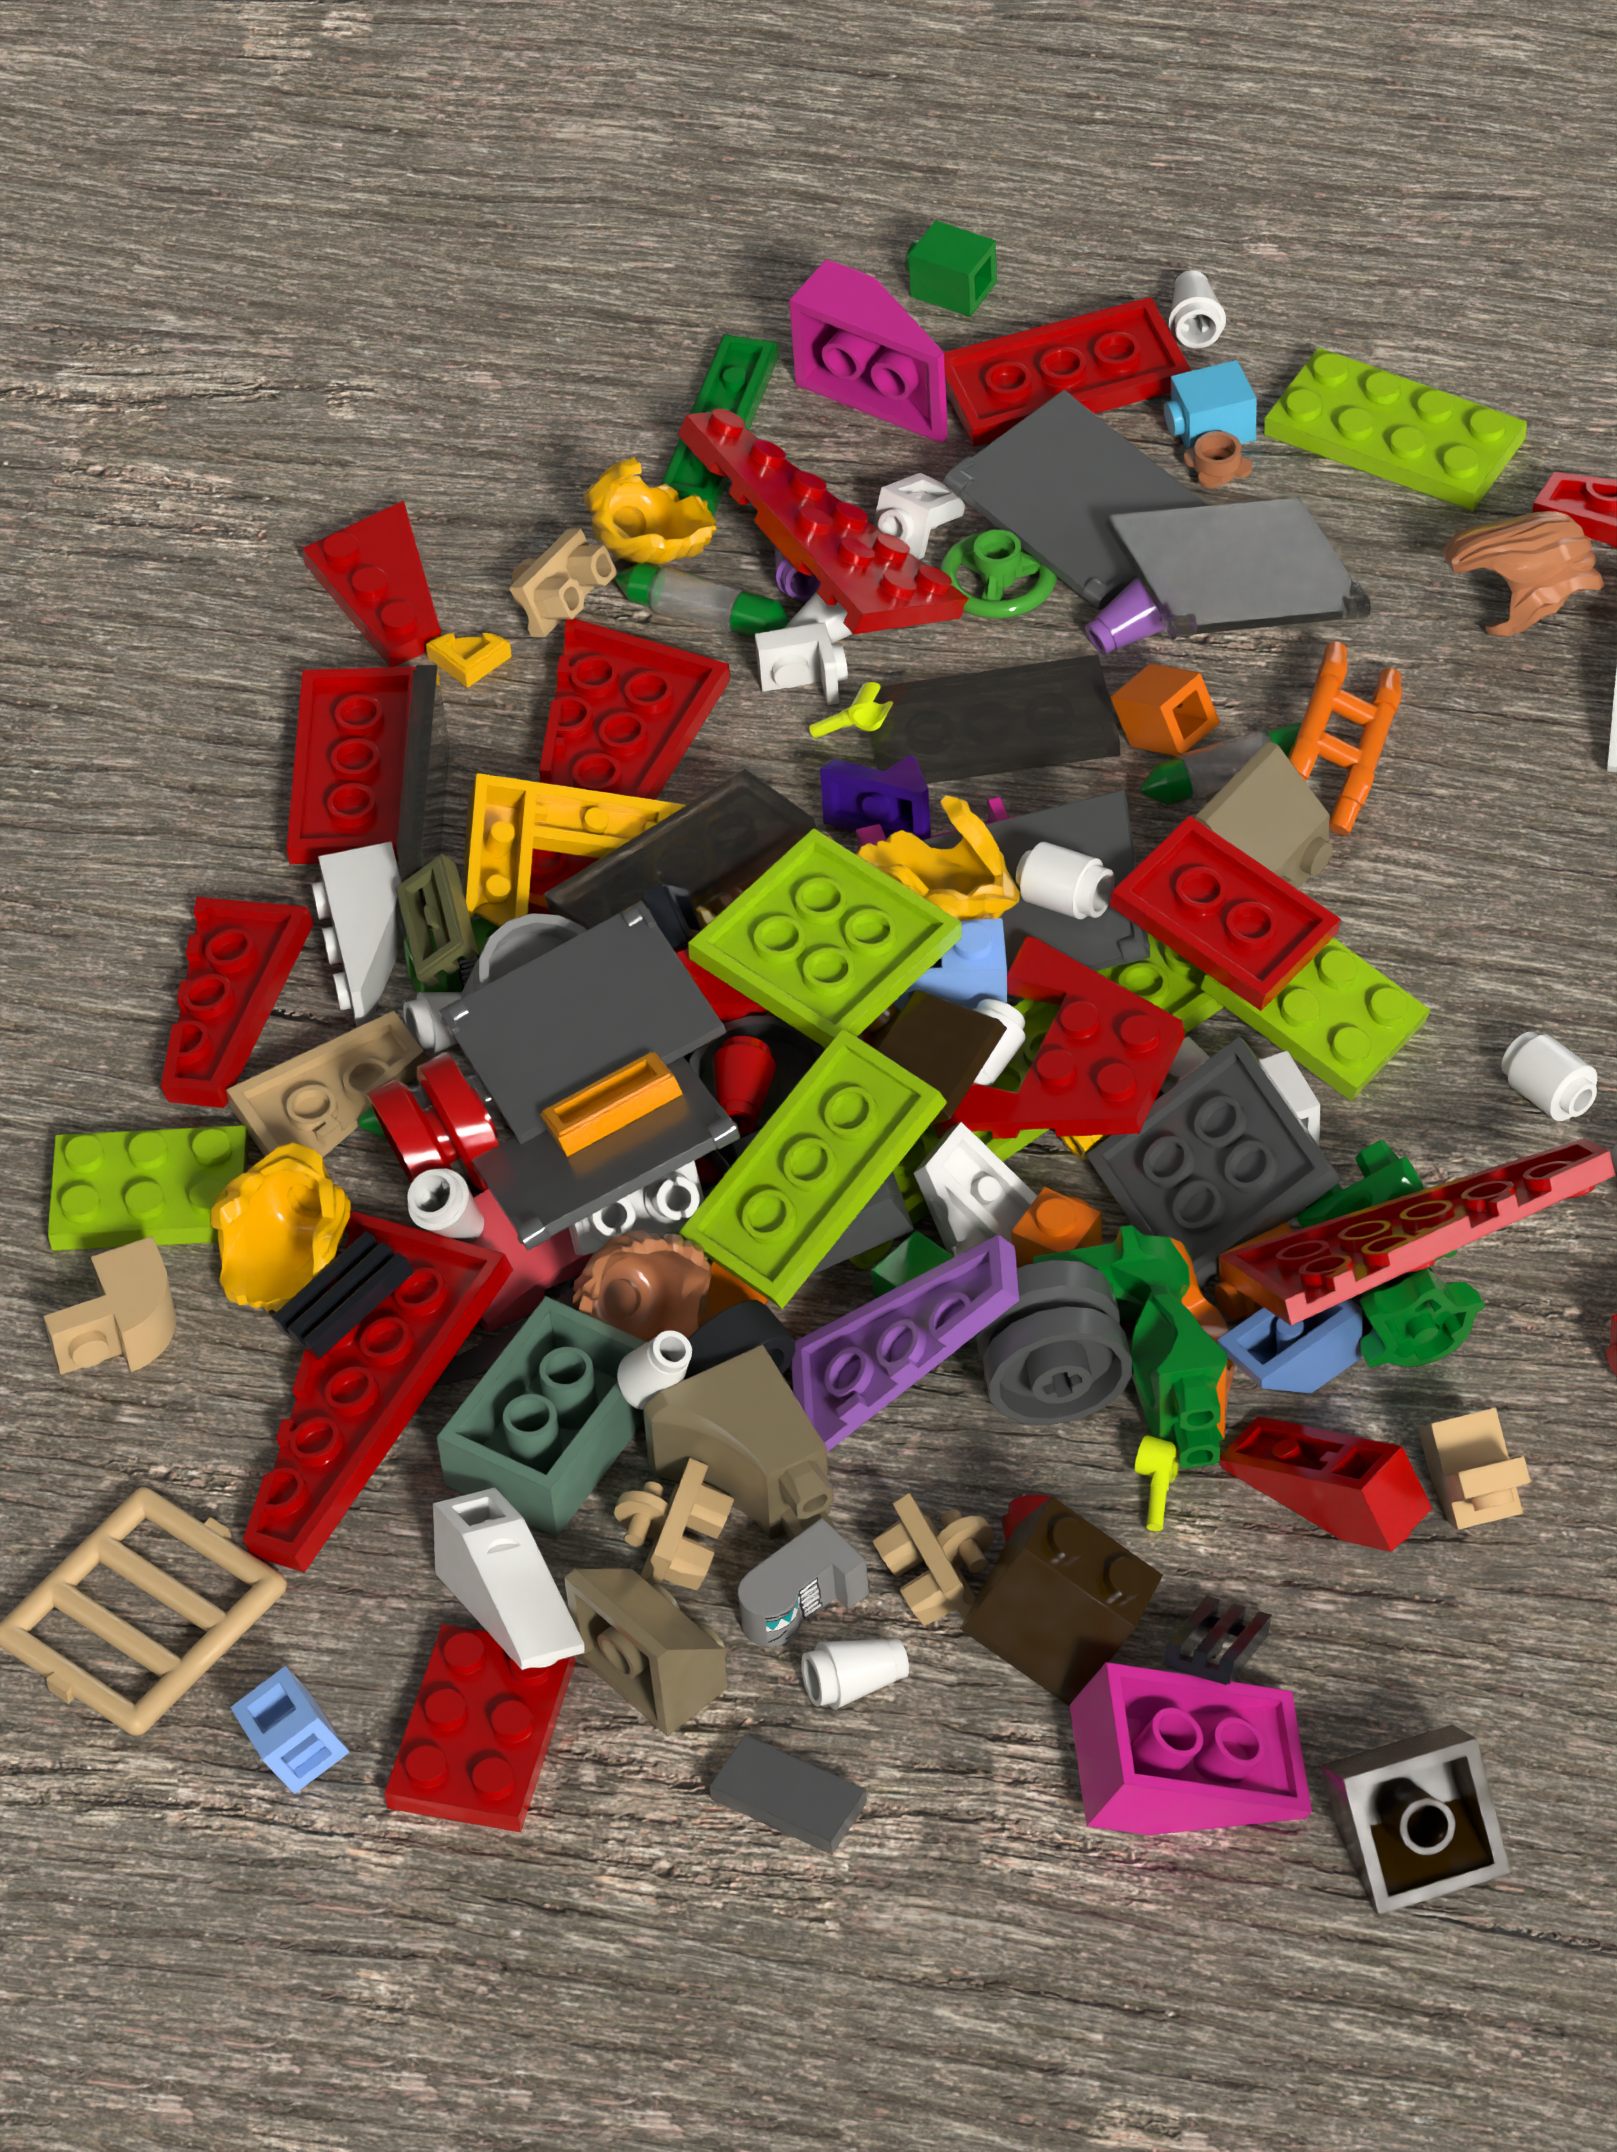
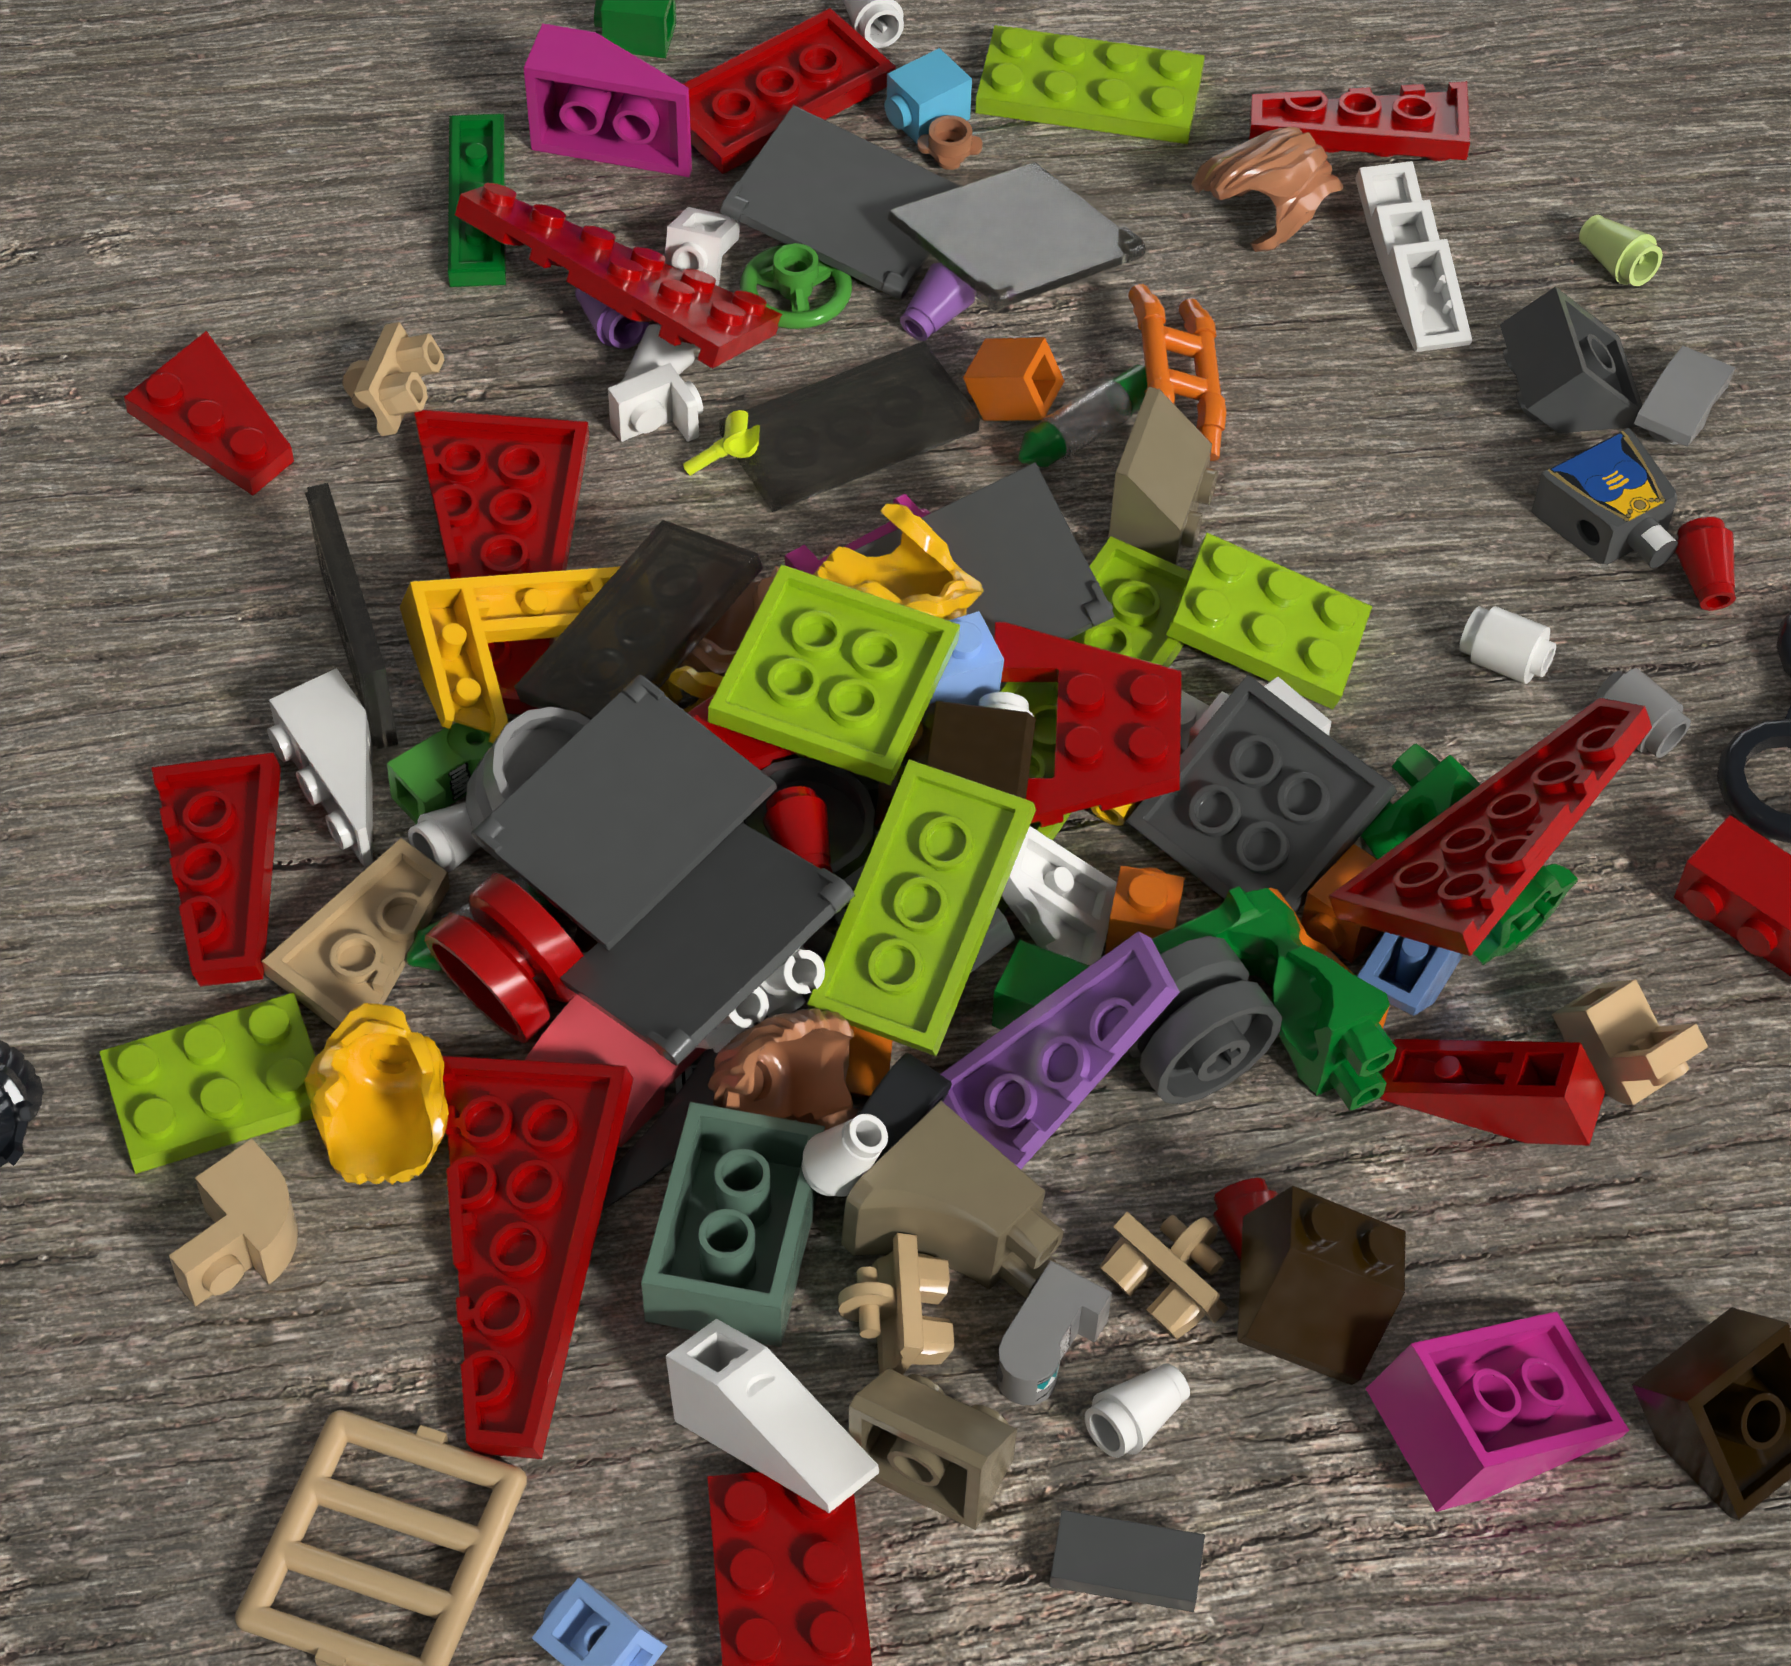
camera: 25 degrees left, 5 degrees up
(336, 1289) = (462, 1145): black tile -> none
(348, 760) = (260, 597): red plate -> none
(444, 912) = (444, 769): olive tile -> none
(445, 1205) = (538, 1022): white cone -> none
(468, 657) = (326, 465): yellow tile -> none
(610, 1103) = (695, 889): light orange tile -> none
(646, 521) = (456, 302): yellow hair -> none
(674, 913) = (672, 680): black tile -> none
(701, 600) = (533, 367): piece -> none
(867, 796) = (785, 521): dark purple slope -> none
(1065, 881) = (1017, 561): white brick -> none
(1157, 1460) = (1329, 1109): neon yellow hand -> none
(1205, 1619) = (1476, 1260): black tile -> none
(1225, 912) = (1178, 558): red plate -> none

